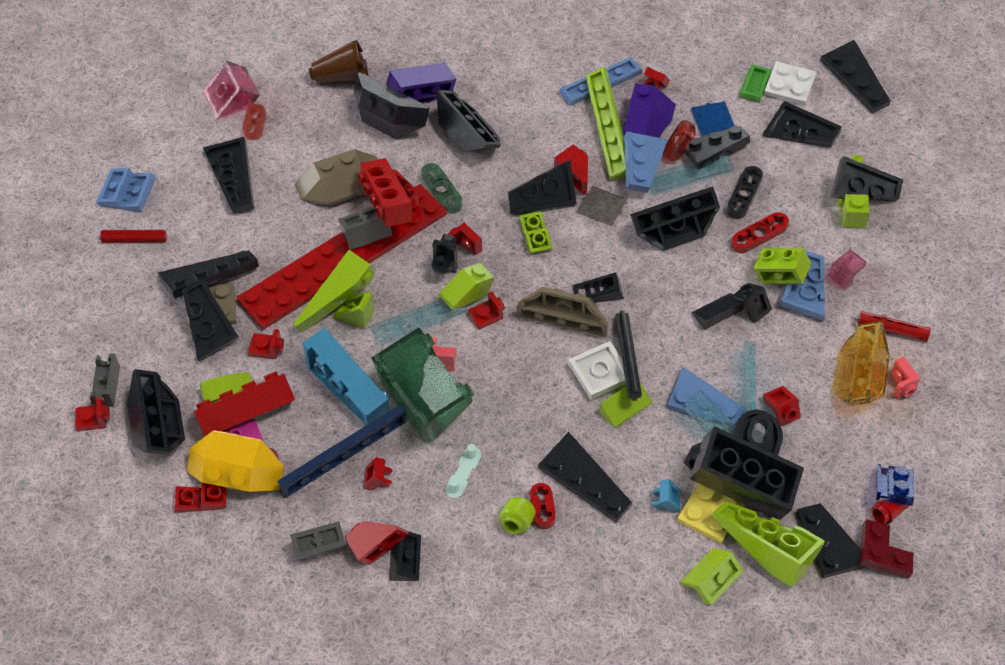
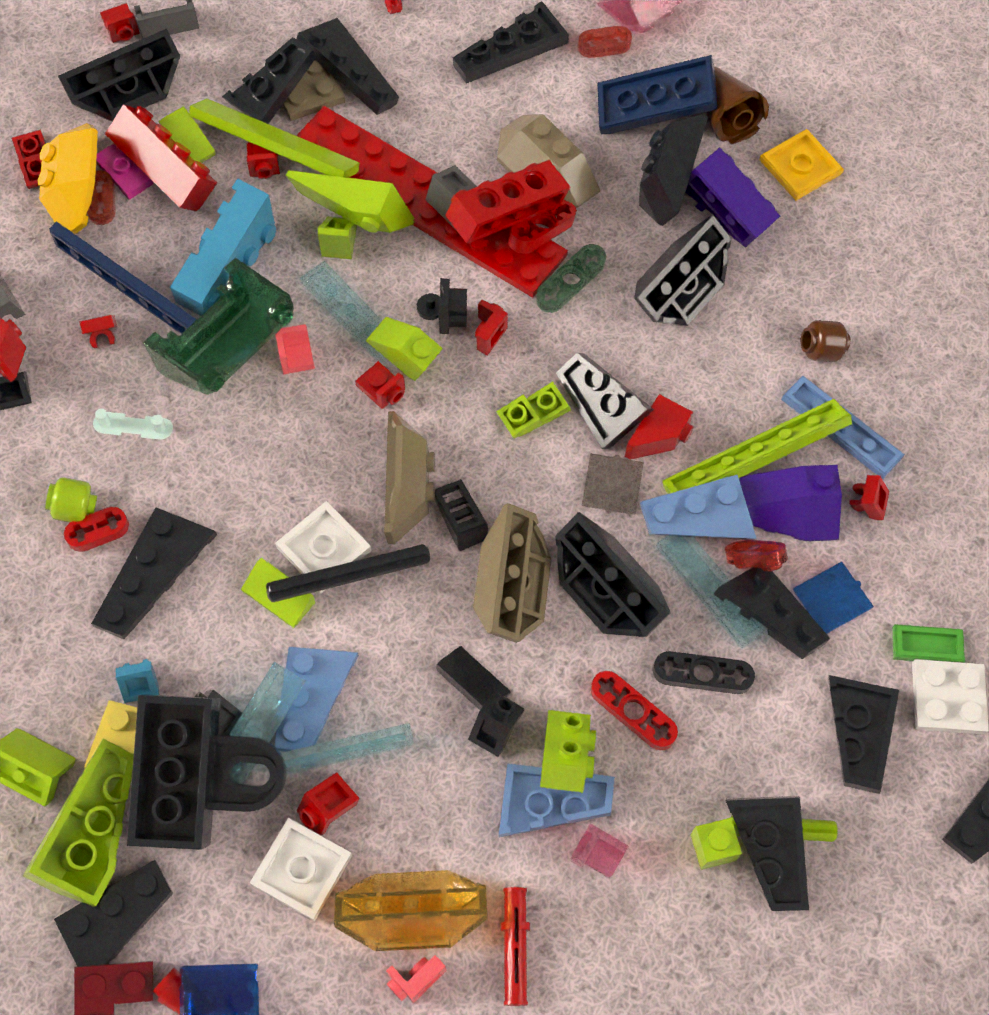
camera: 70 degrees right, 10 degrees up
(259, 328) = (273, 139): none -> lime tile
(321, 100) = (657, 95): none -> dark blue tile
(401, 46) = (801, 164): none -> yellow tile
(541, 69) = (825, 341): none -> reddish brown head
(655, 270) = (512, 575): none -> dark tan wedge
(822, 427) = (301, 869): none -> white plate

